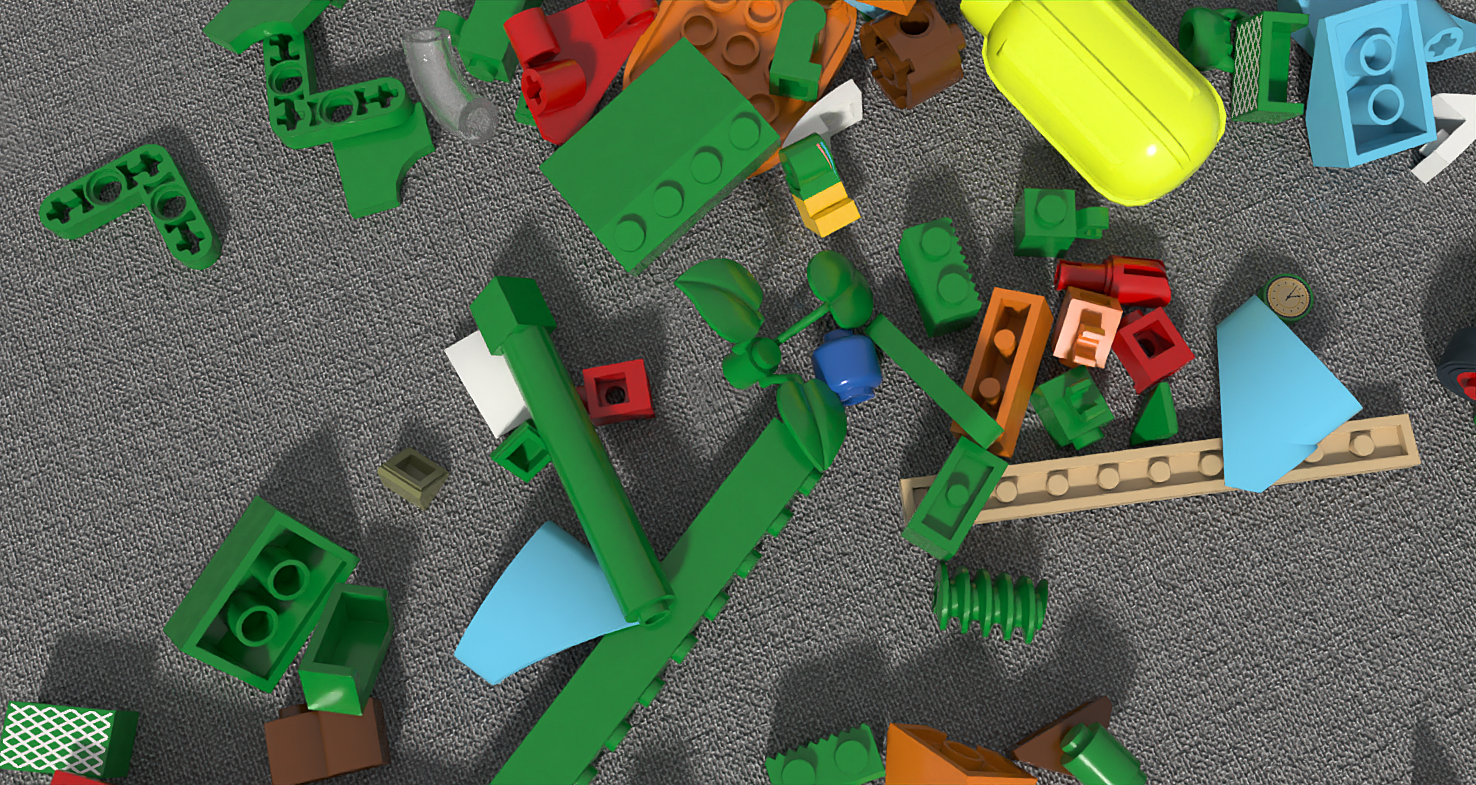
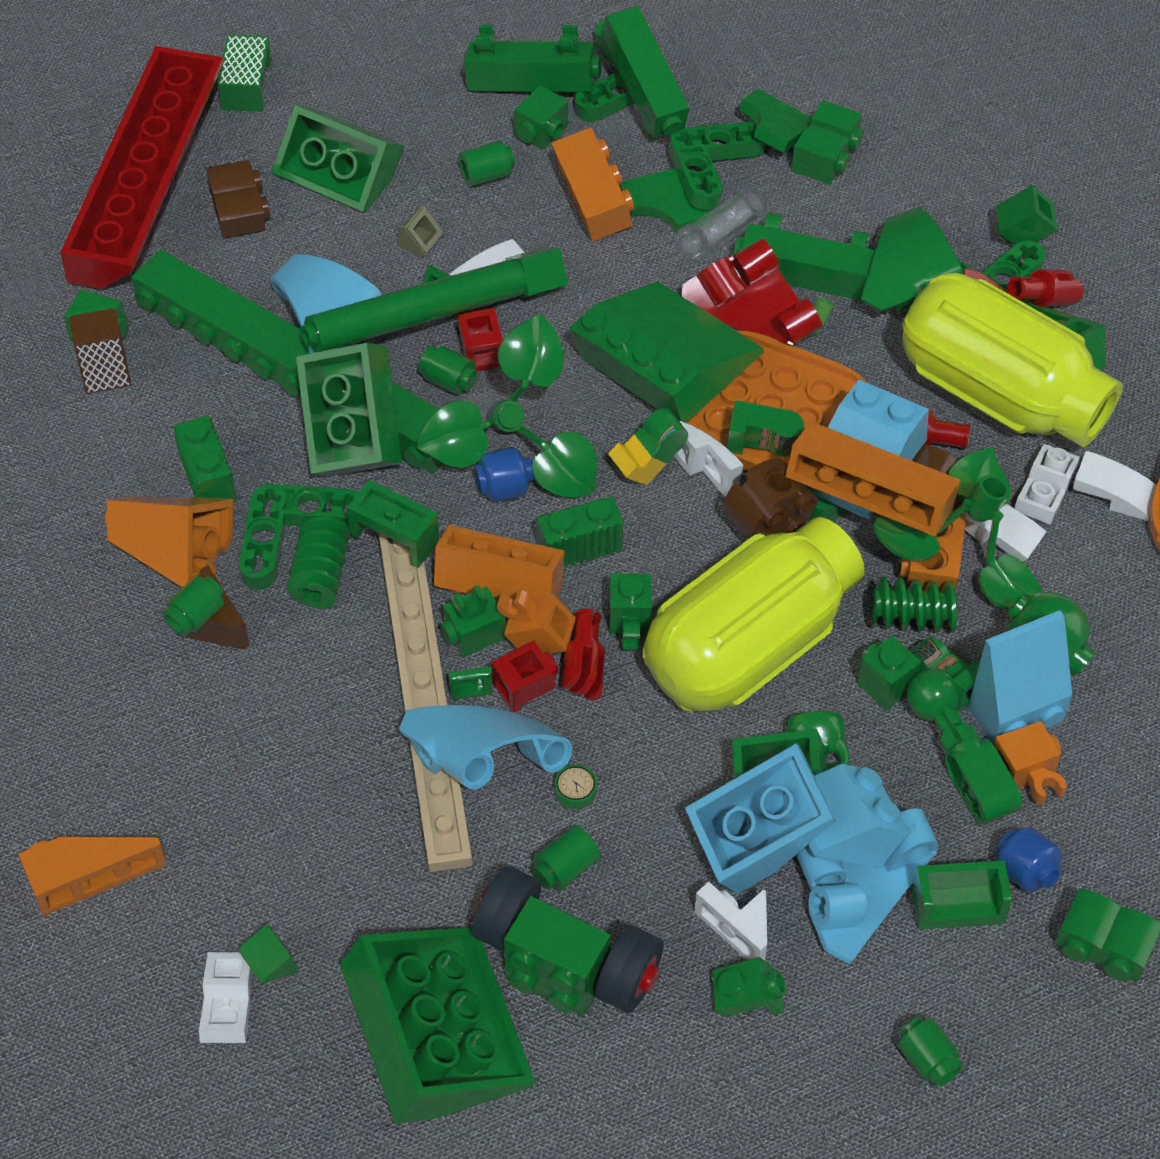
camera: 85 degrees right, 20 degrees down
(122, 313) = (528, 64): none -> green brick
(176, 152) = (645, 72): none -> green brick
(221, 306) = (541, 117): none -> green brick
(298, 383) = (486, 163): none -> green brick
(347, 649) = (295, 194): green panel -> none
(353, 241) = (594, 183): none -> orange brick
(667, 437) = (448, 369): none -> green brick
(777, 557) = (349, 409): none -> green brick
(892, 648) = (283, 512): none -> green beam
(934, 381) = (438, 516): green beam -> none
(1395, 311) = (565, 858): none -> green brick

